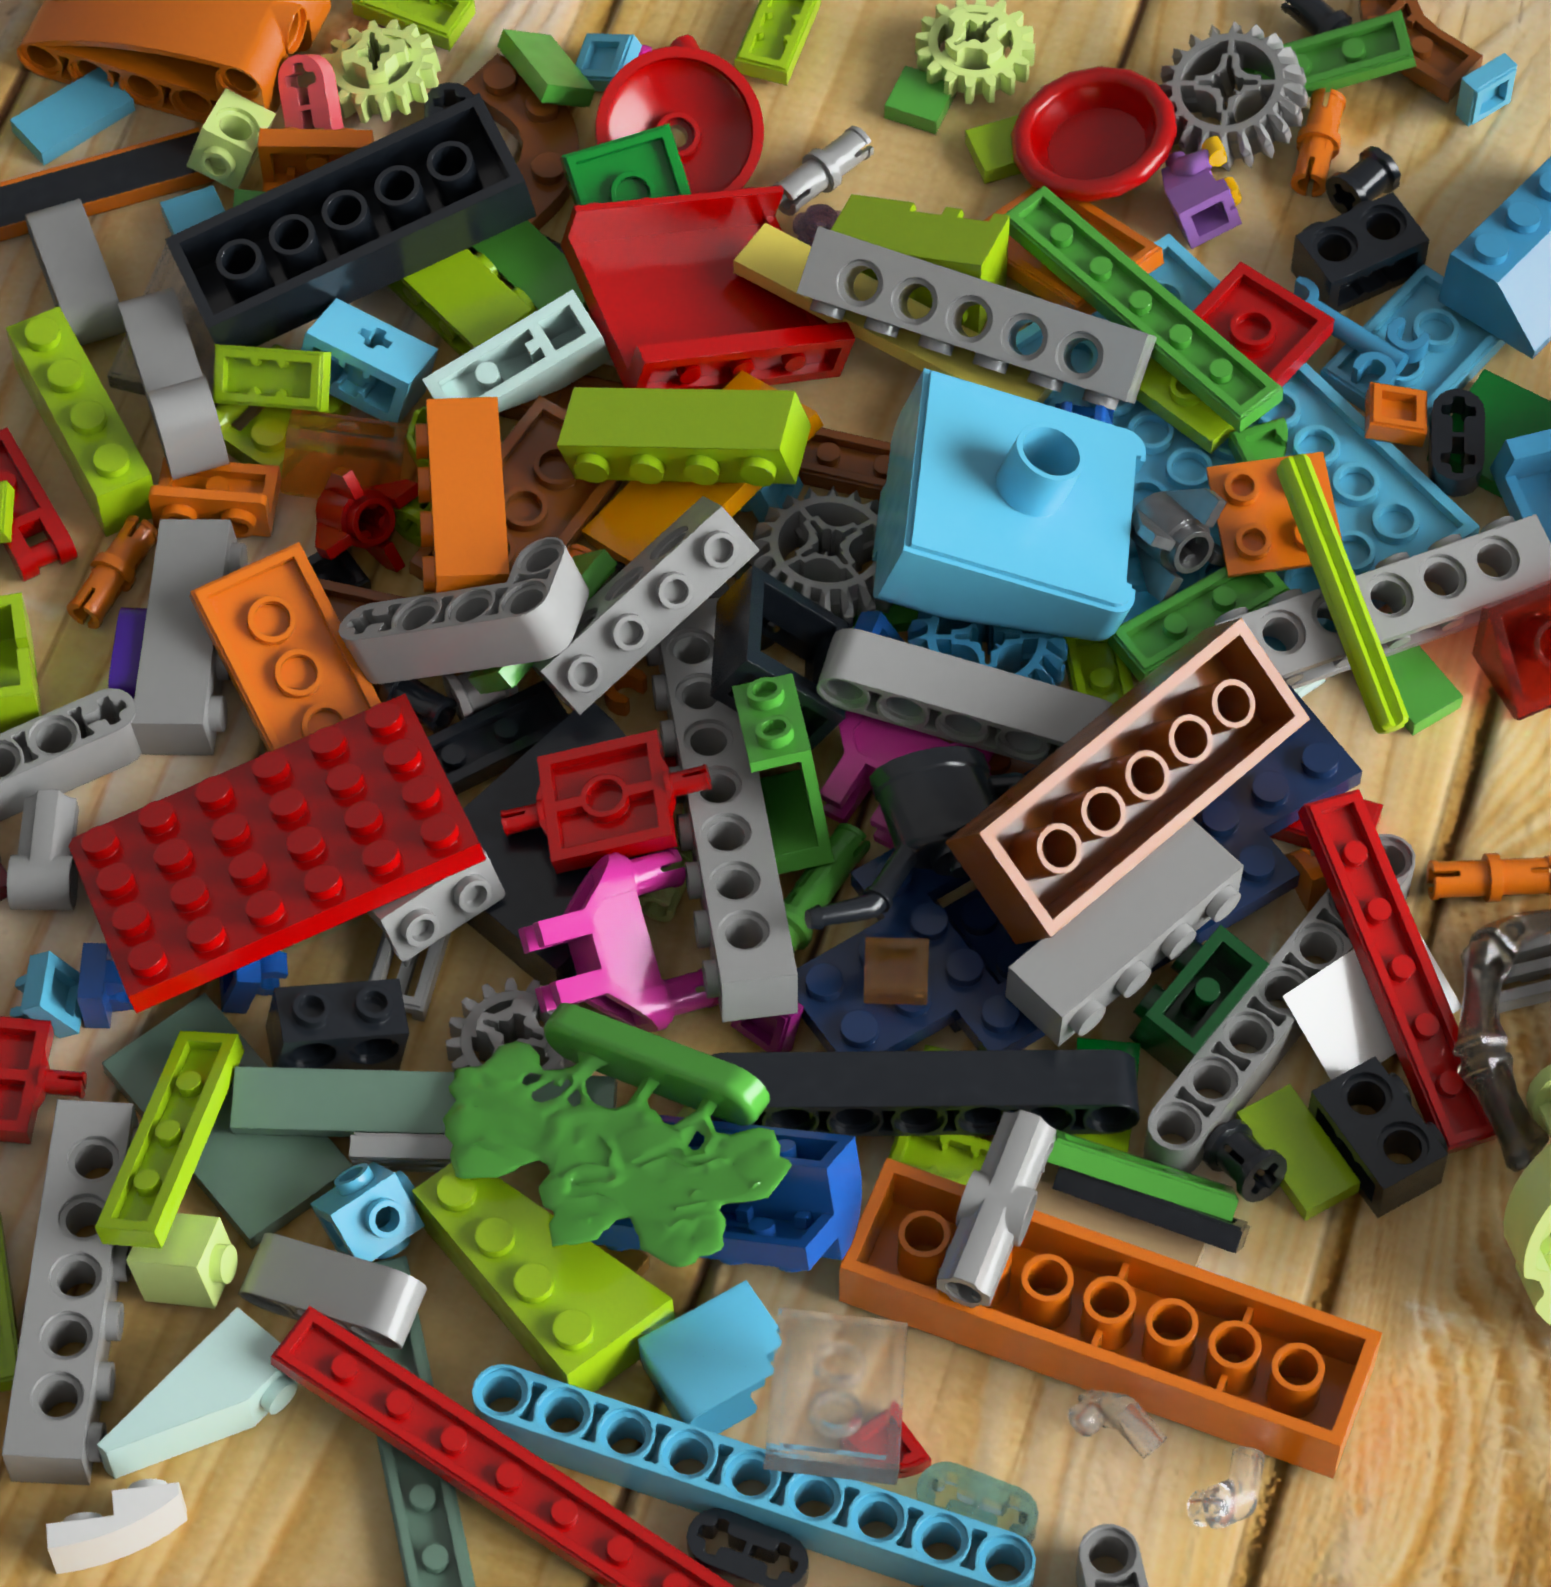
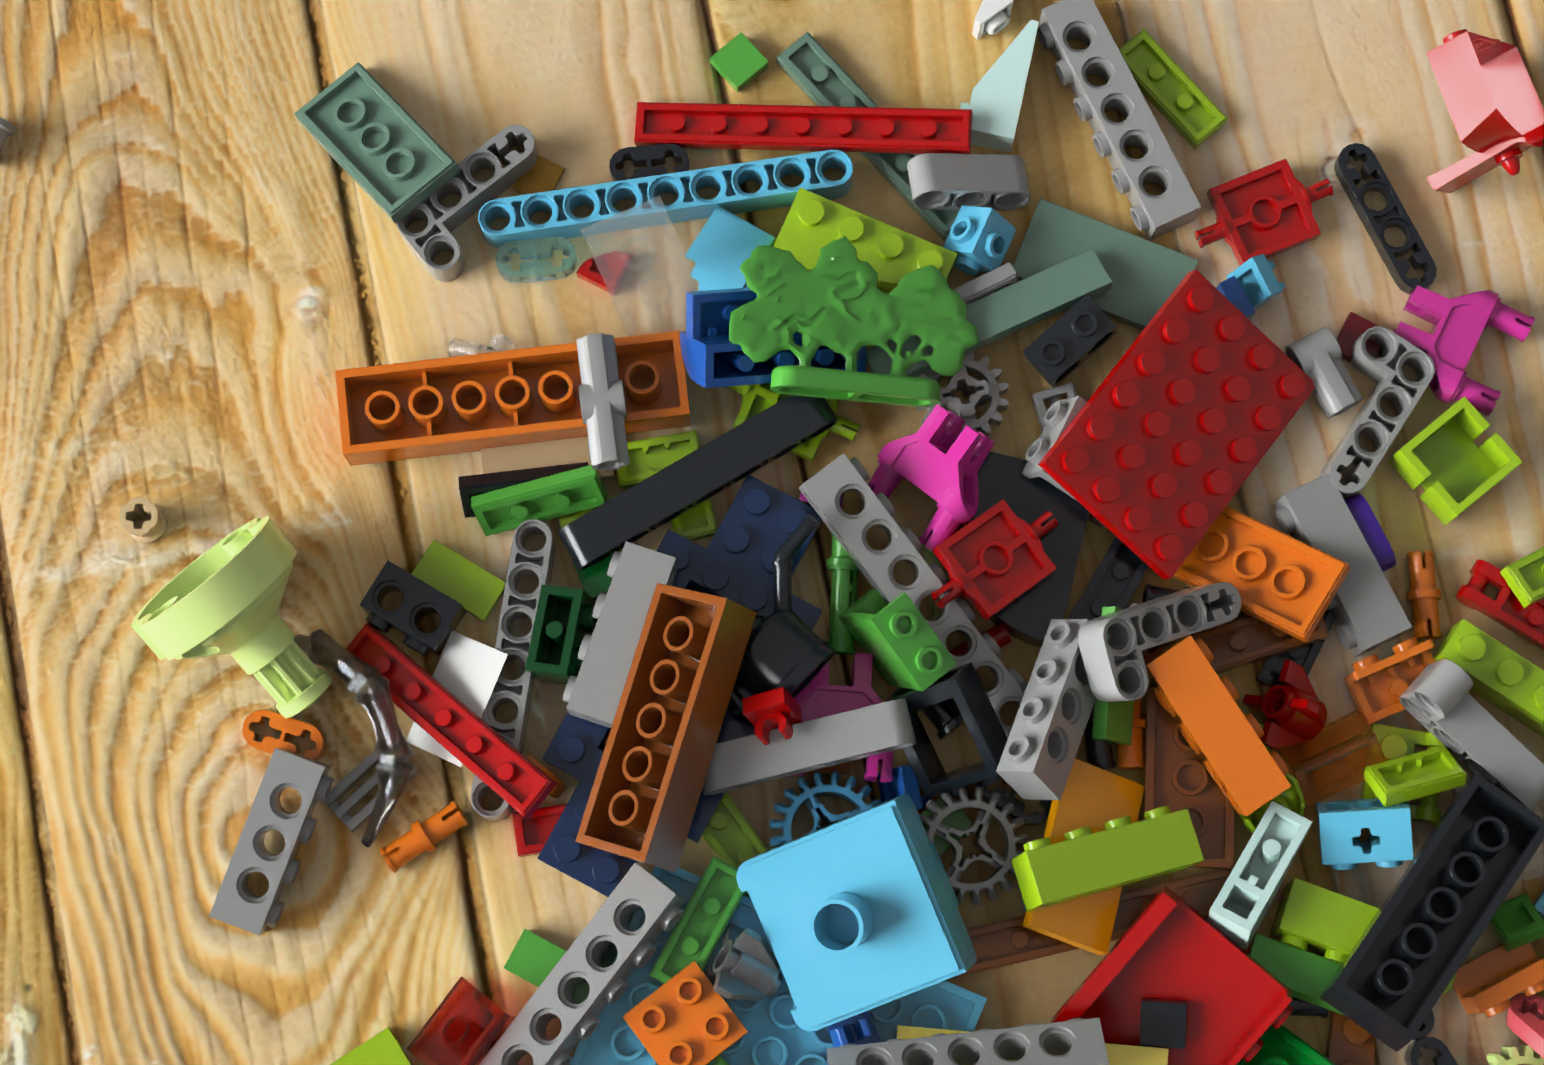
camera: 150 degrees right, 20 degrees up
(169, 1139) = (1118, 213): lime plate -> none
(190, 1265) = (1066, 157): yellowish green brick -> none
(722, 288) = (1163, 1023): none -> black tile
(896, 971) = (752, 544): clear orange tile -> none
(988, 734) = (772, 711): none -> red tile
(1233, 1498) = (393, 336): clear arm -> none
(1244, 1160) = (484, 548): black bush -> none
(1342, 594) = (604, 963): lime axle -> none

